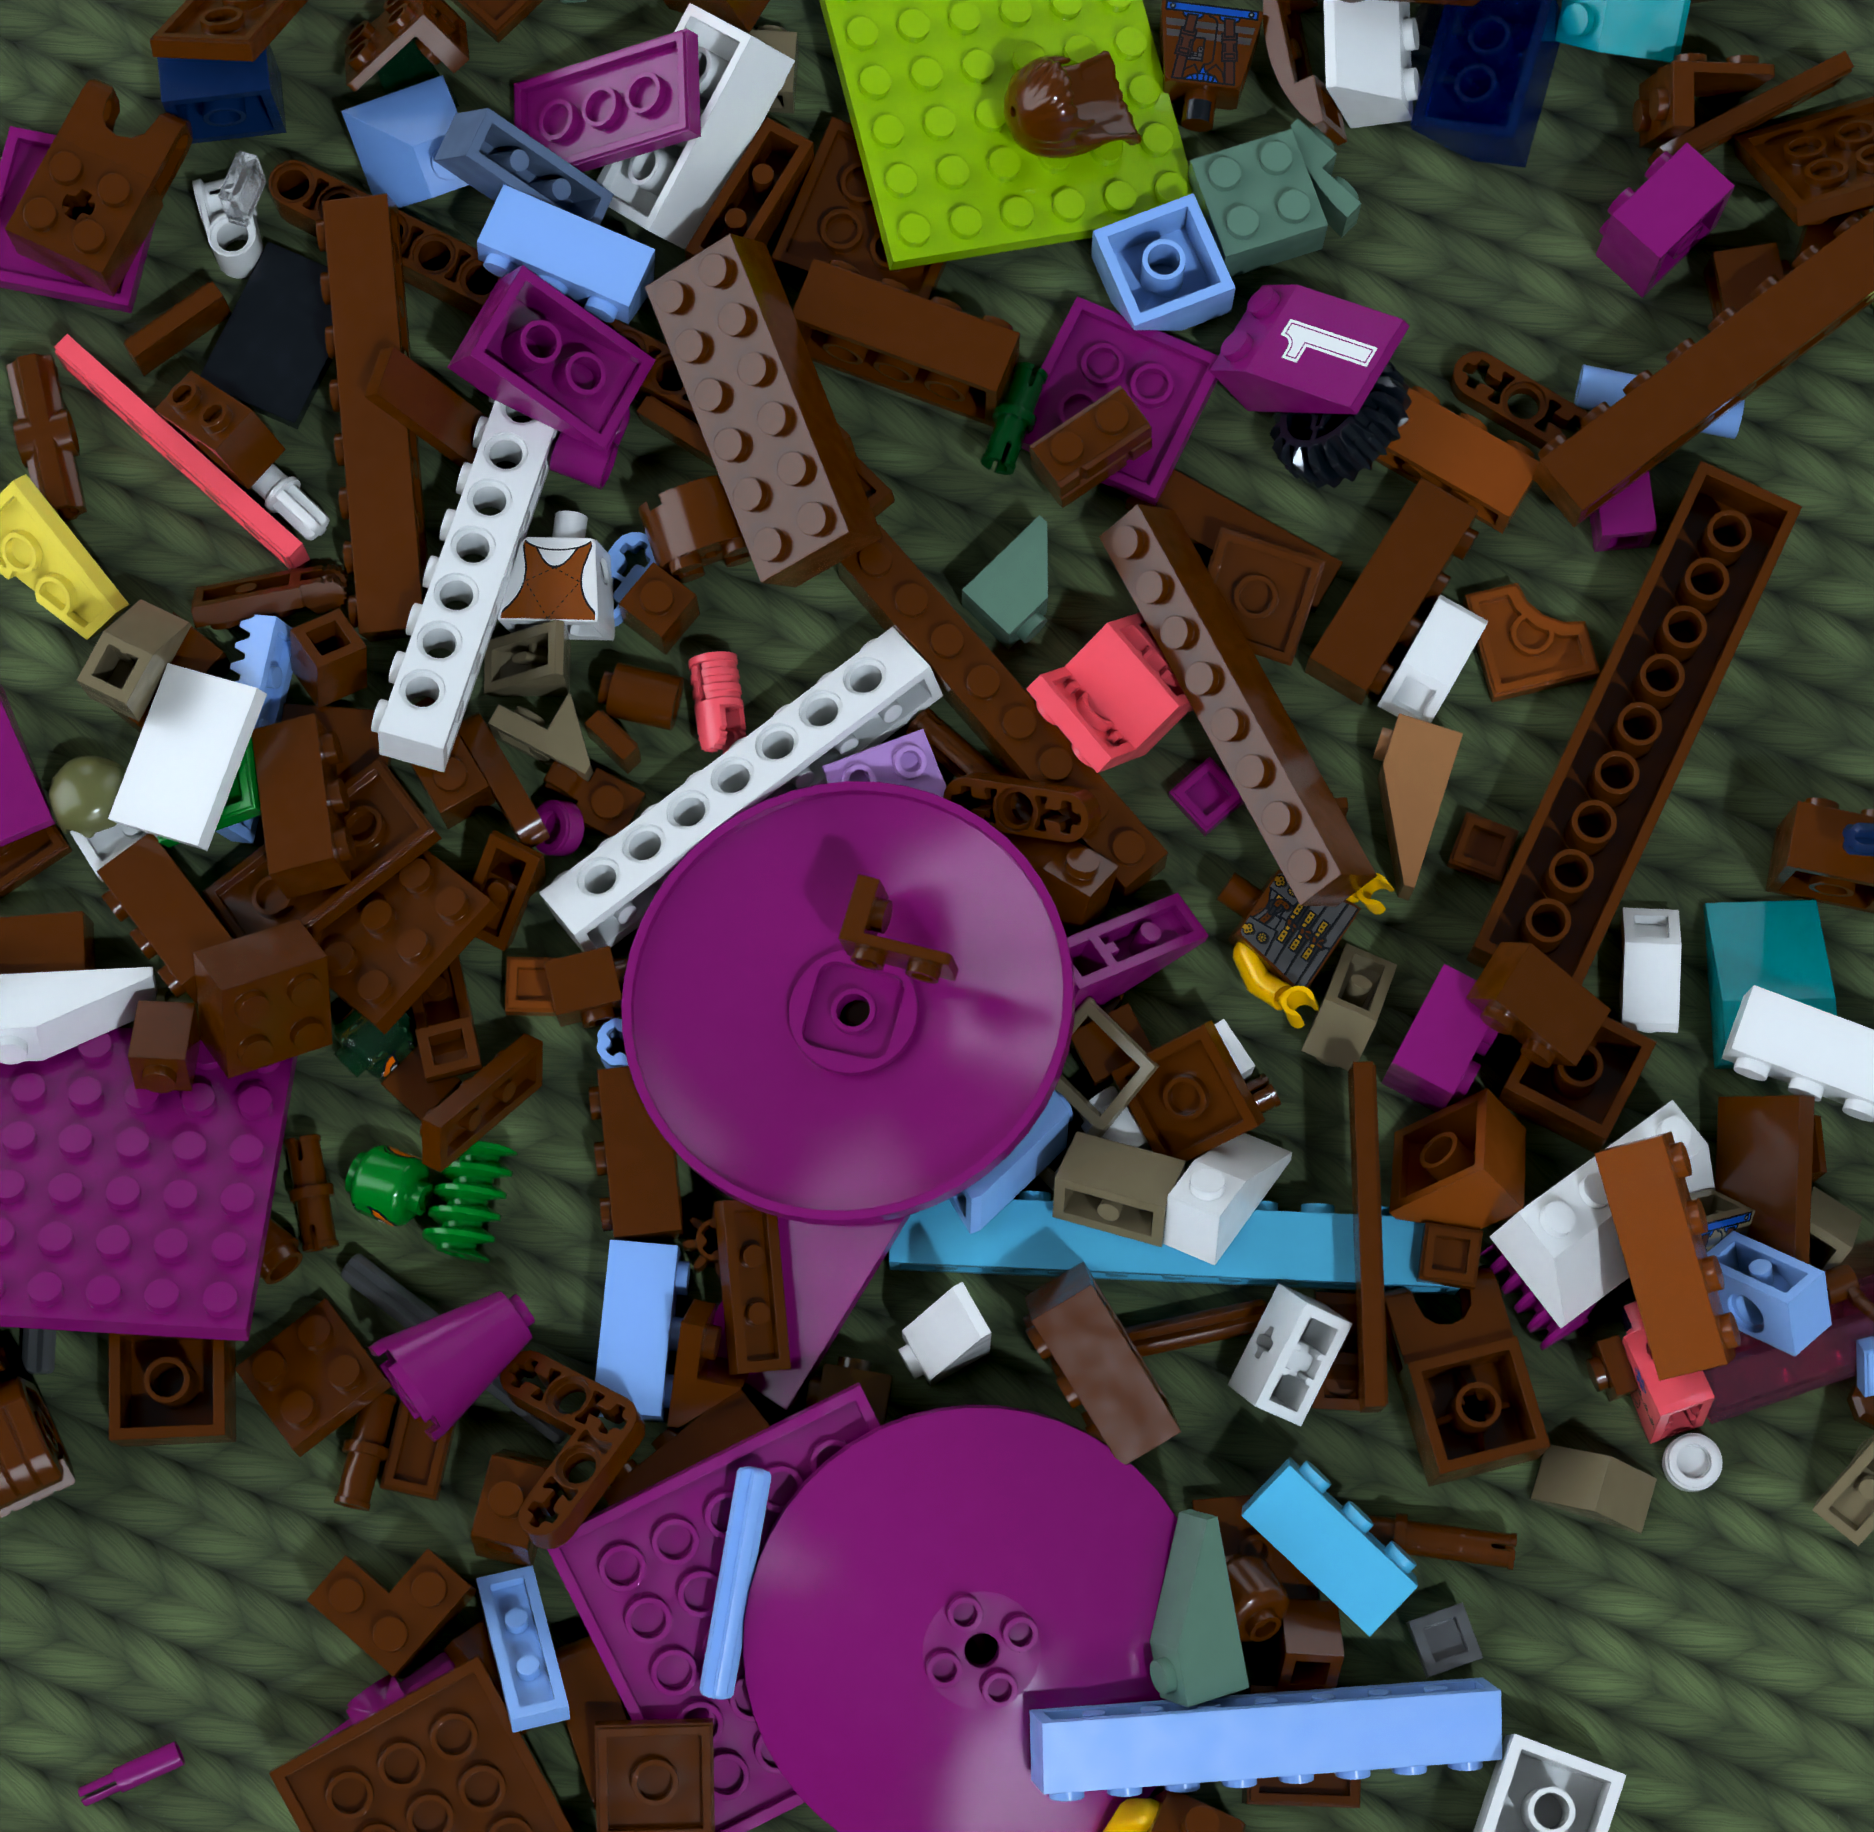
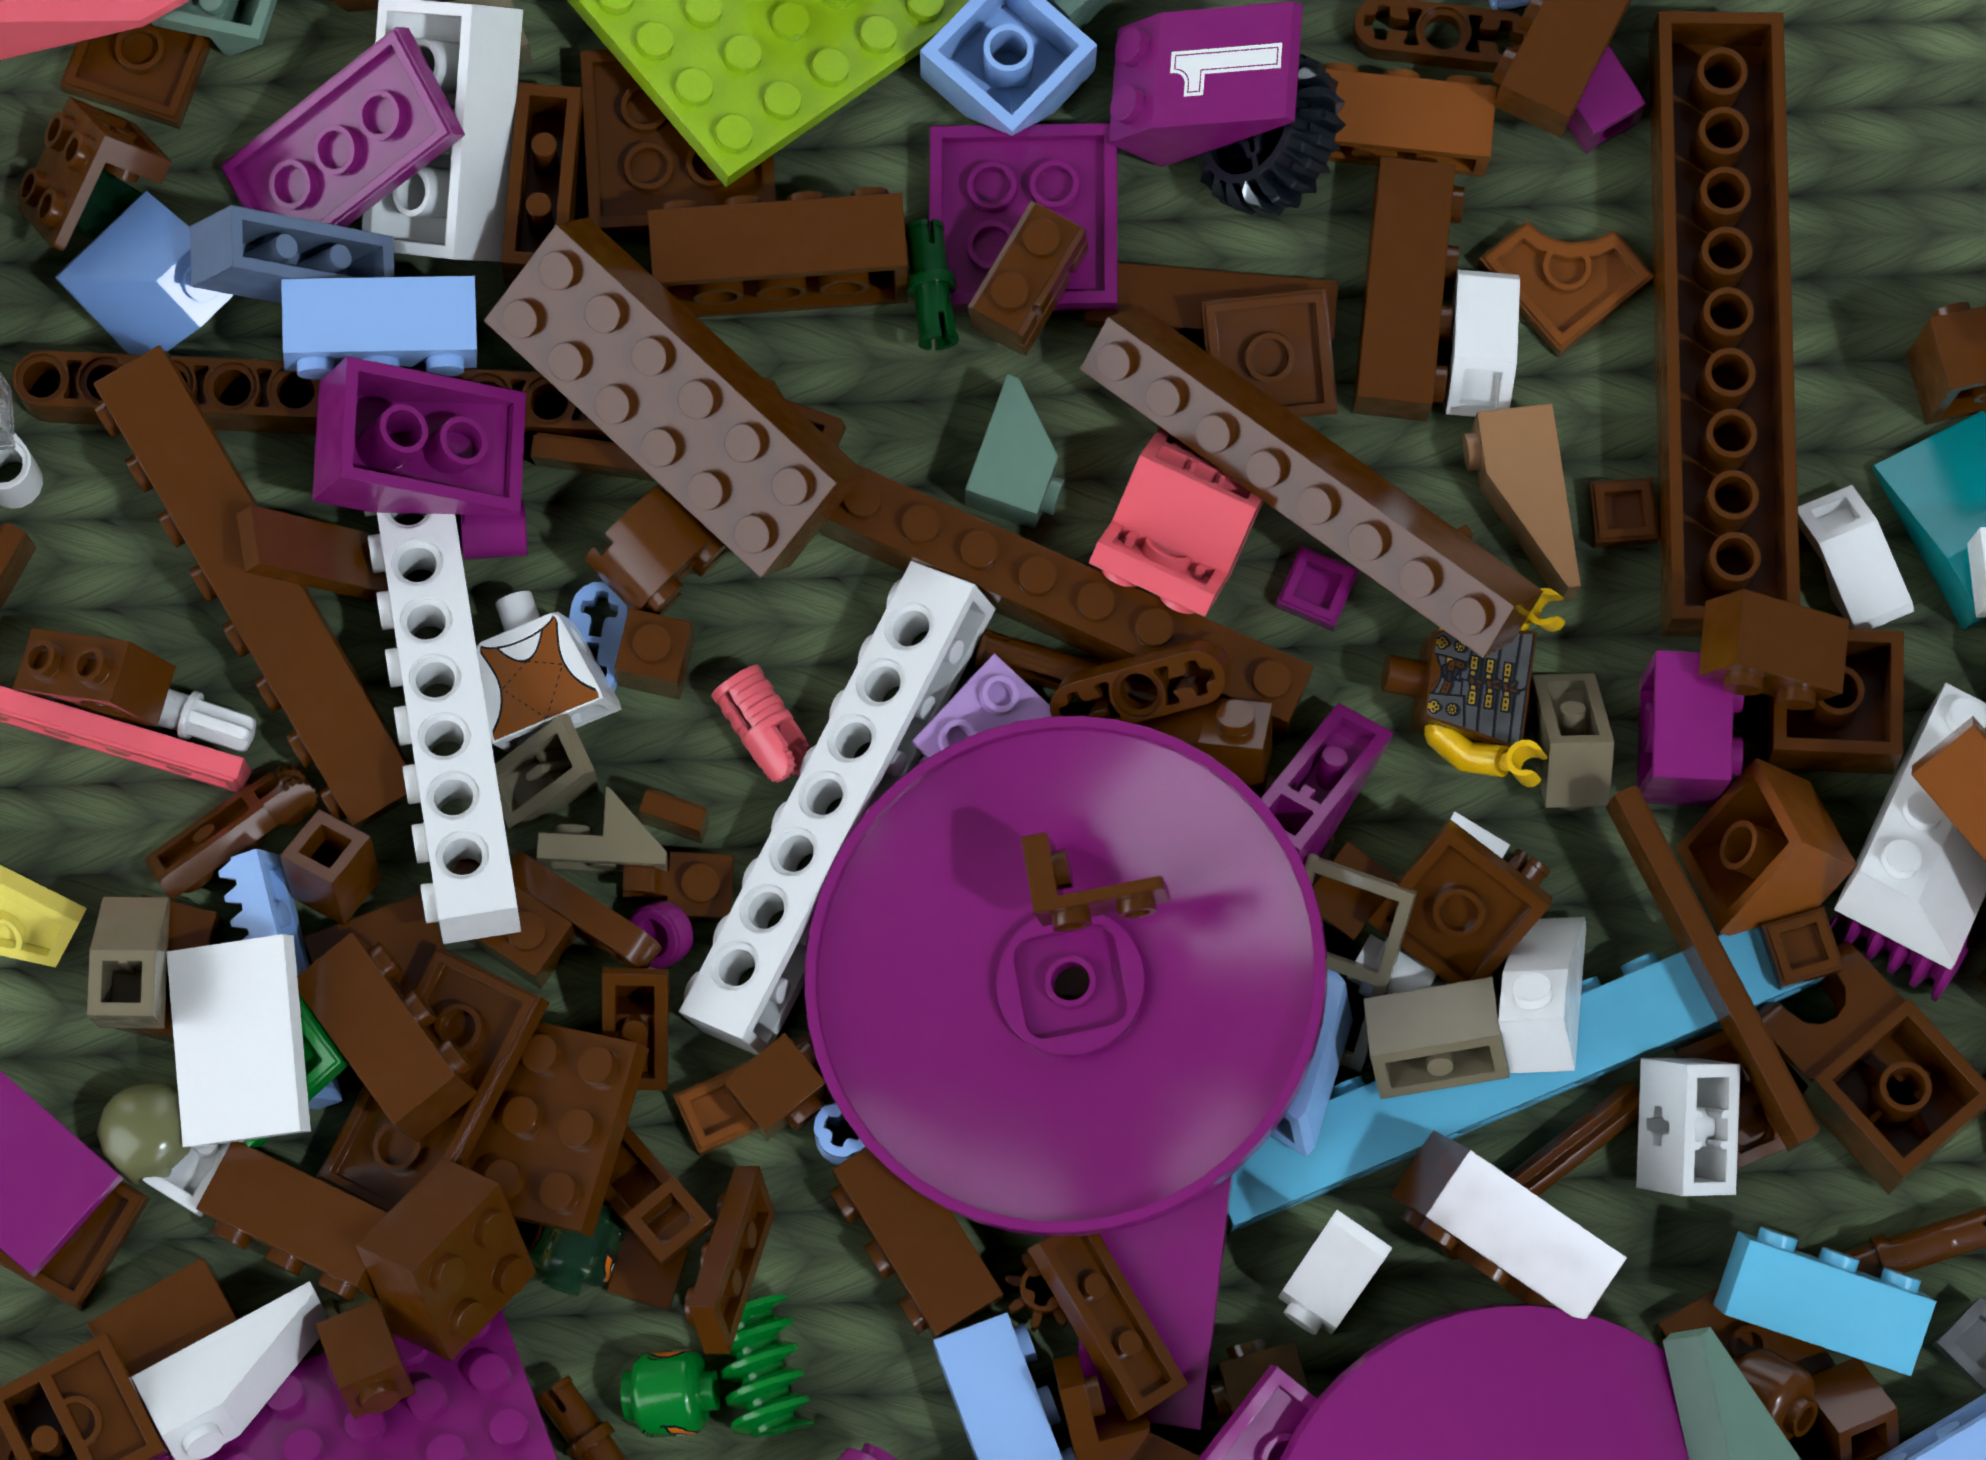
camera: 30 degrees left, 0 degrees up
(275, 338) = (101, 549): black tile -> none
(641, 695) = (680, 754): reddish brown brick -> none

